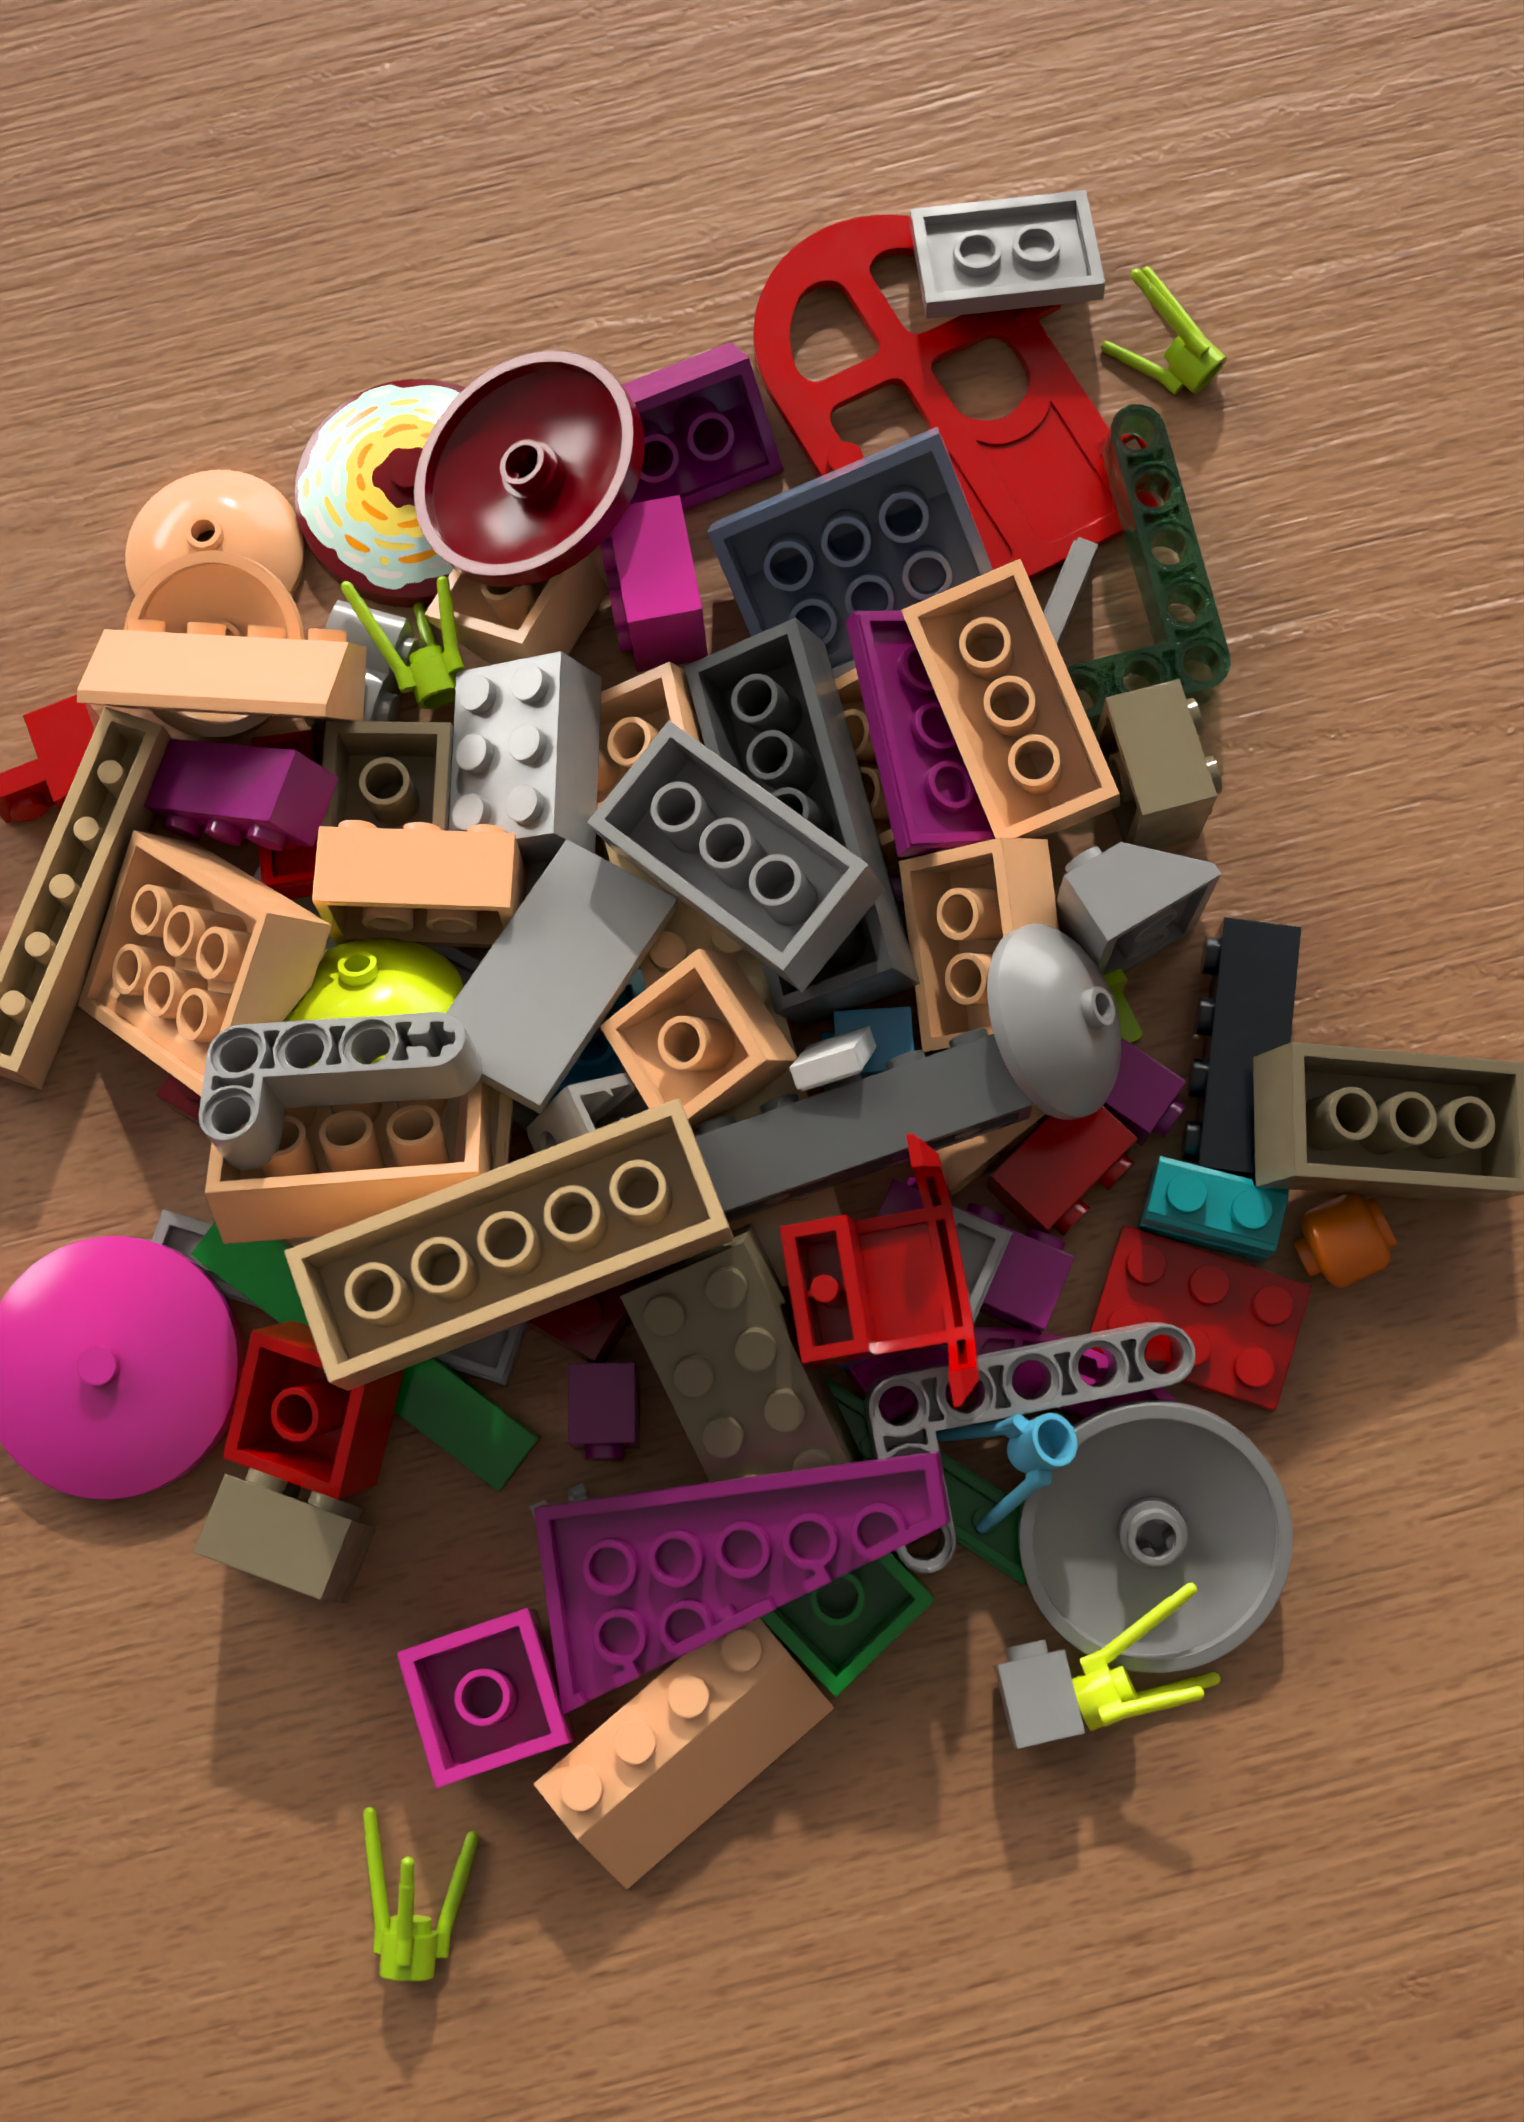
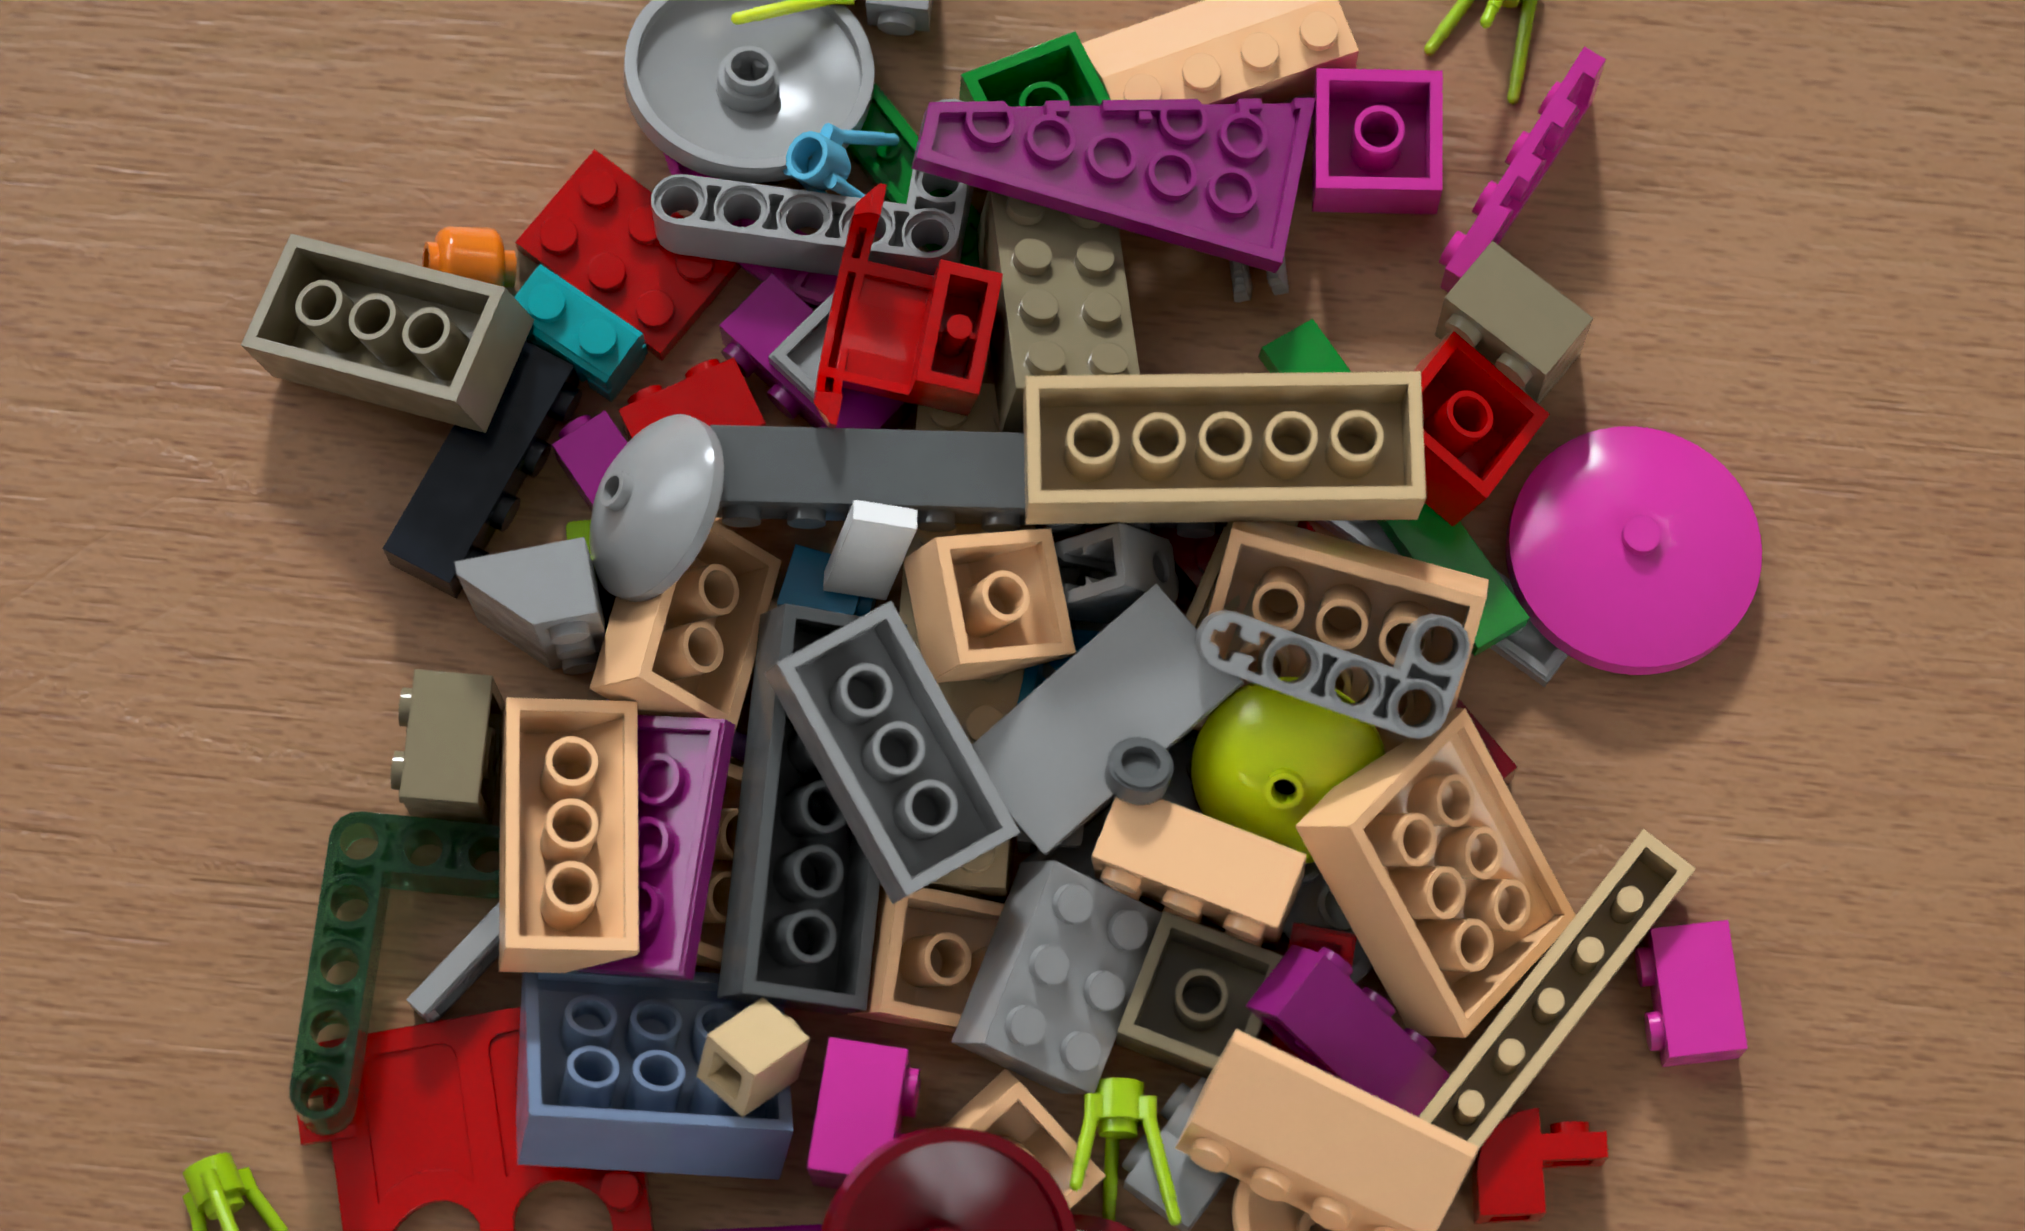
camera: 165 degrees left, 0 degrees up
(308, 1778) = (1528, 163): none -> dark pink wing
(495, 921) = (1138, 771): none -> dark grey tile
(603, 1409) = (1194, 341): magenta brick -> none
(764, 580) = (753, 1056): none -> tan brick

